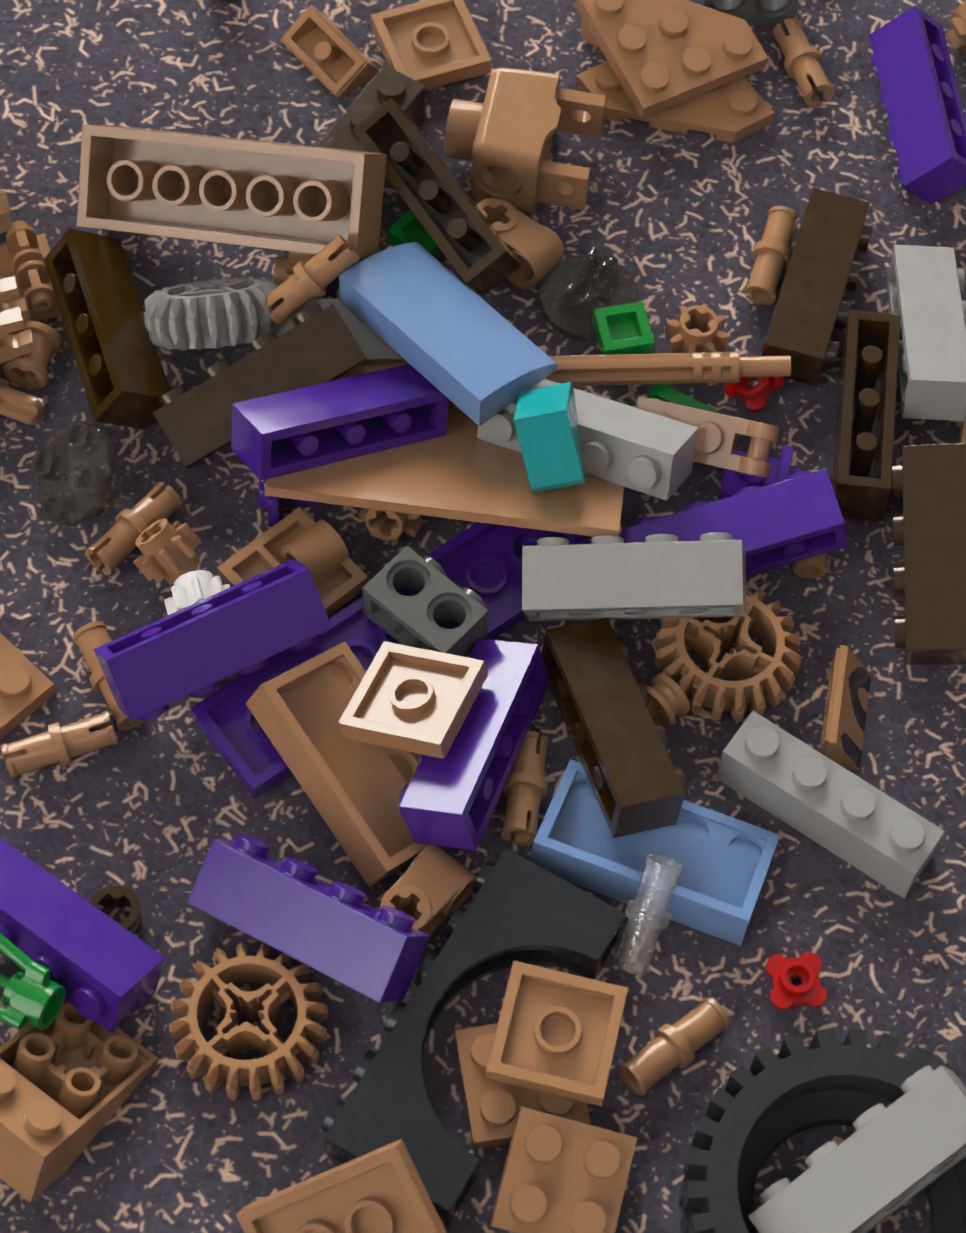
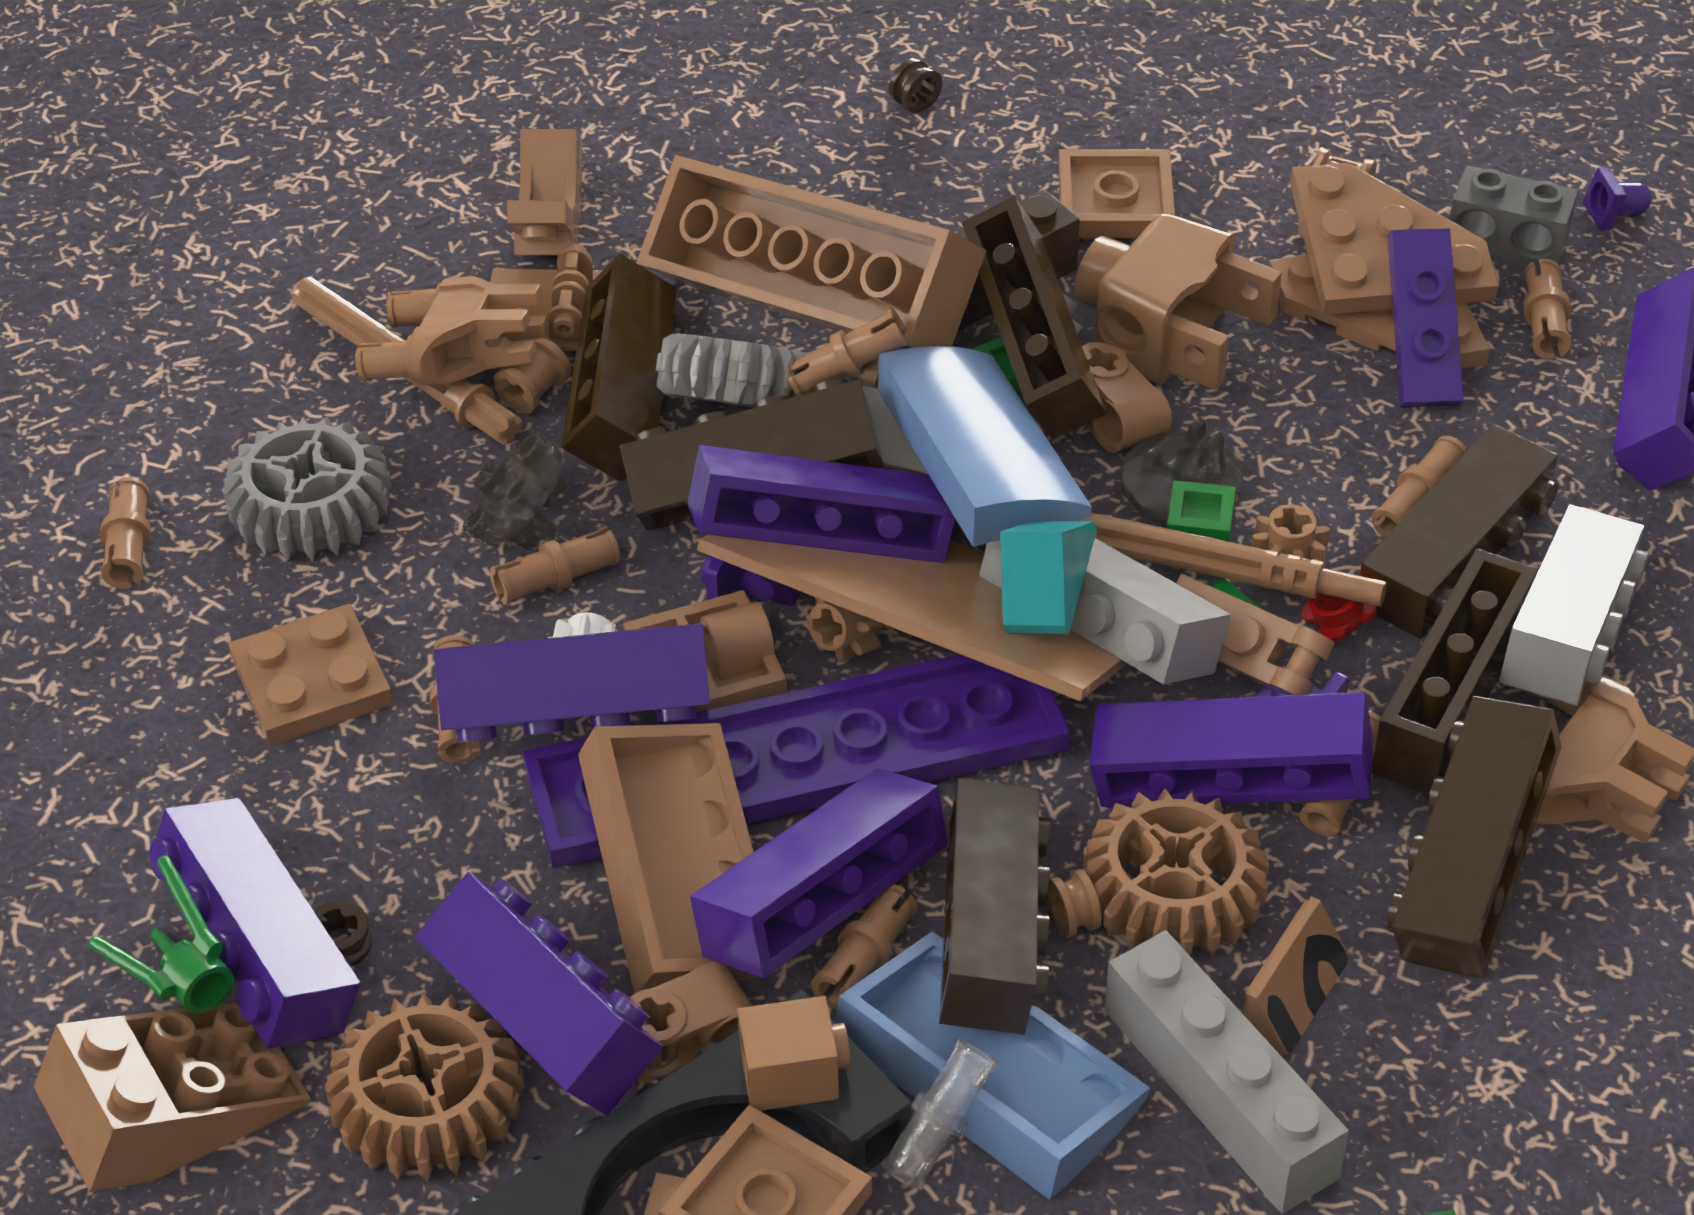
camera: 25 degrees right, 15 degrees down
(59, 744) = (365, 749): medium nougat pin -> none
(167, 551) = (576, 590): medium nougat gear -> none
(328, 53) = (994, 170): medium nougat slope -> none
(413, 699) = (762, 796): plate -> none
(416, 618) = (827, 719): dark grey brick -> none
(531, 911) = (791, 1053): none -> medium nougat brick
(634, 578) = (1084, 749): light grey brick -> none
(724, 102) = (1425, 317): none -> dark purple plate

